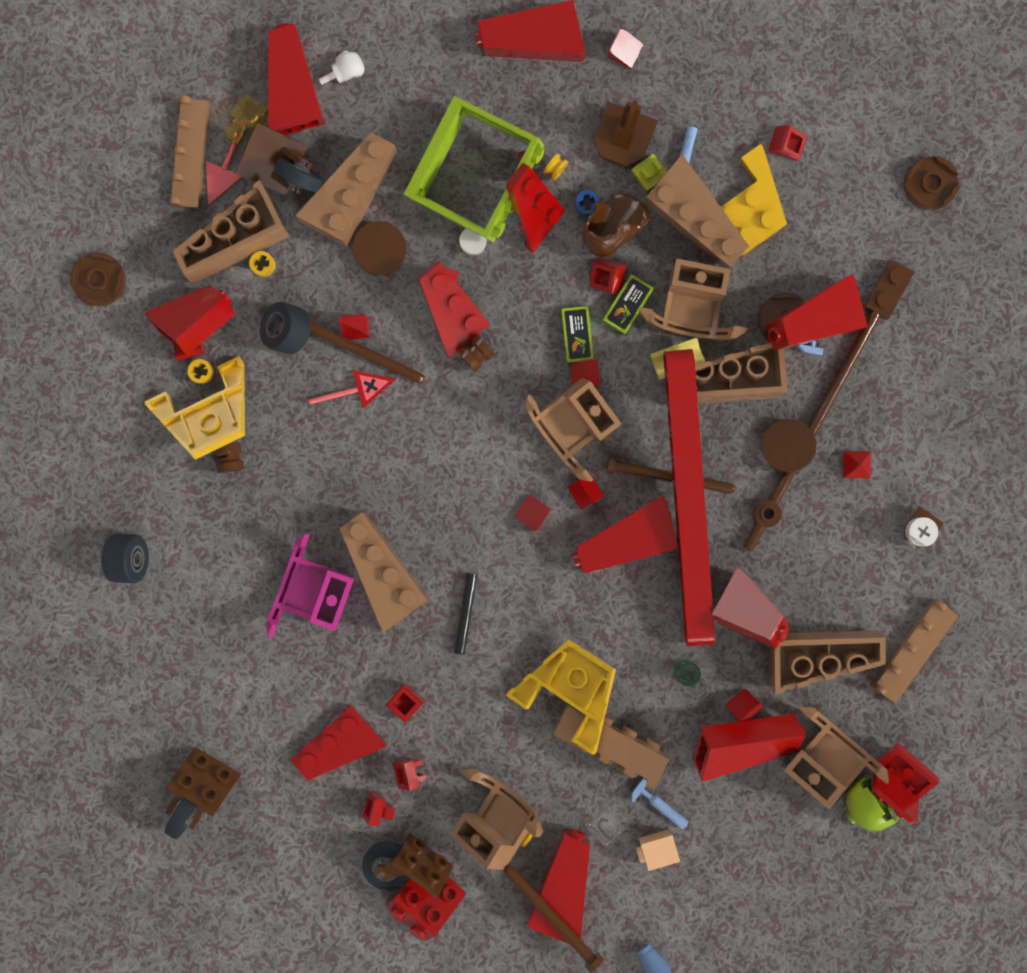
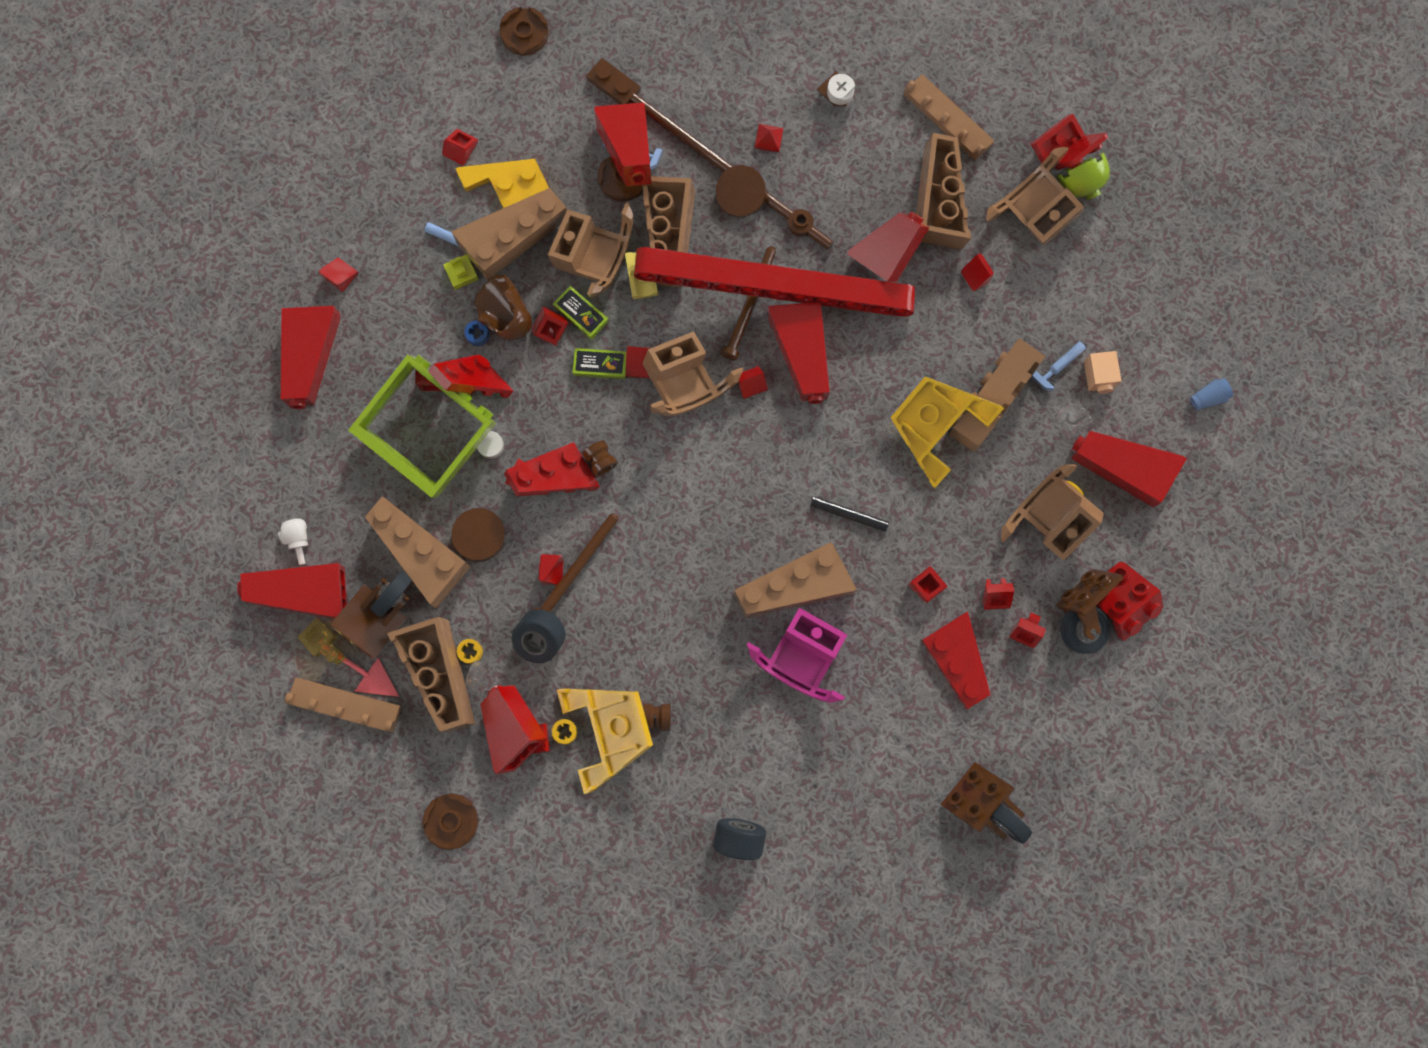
camera: 80 degrees left, 10 degrees down
(368, 387) = (609, 570): piece -> none
(532, 513) = (763, 433): red slope -> none
(555, 167) = (436, 353): yellow bush -> none
(592, 960) = (1200, 445): reddish brown bar -> none
(624, 134) = (419, 286): reddish brown piece -> none
(695, 674) = (934, 323): clear green bush -> none
(745, 743) = (1013, 275): red slope -> none

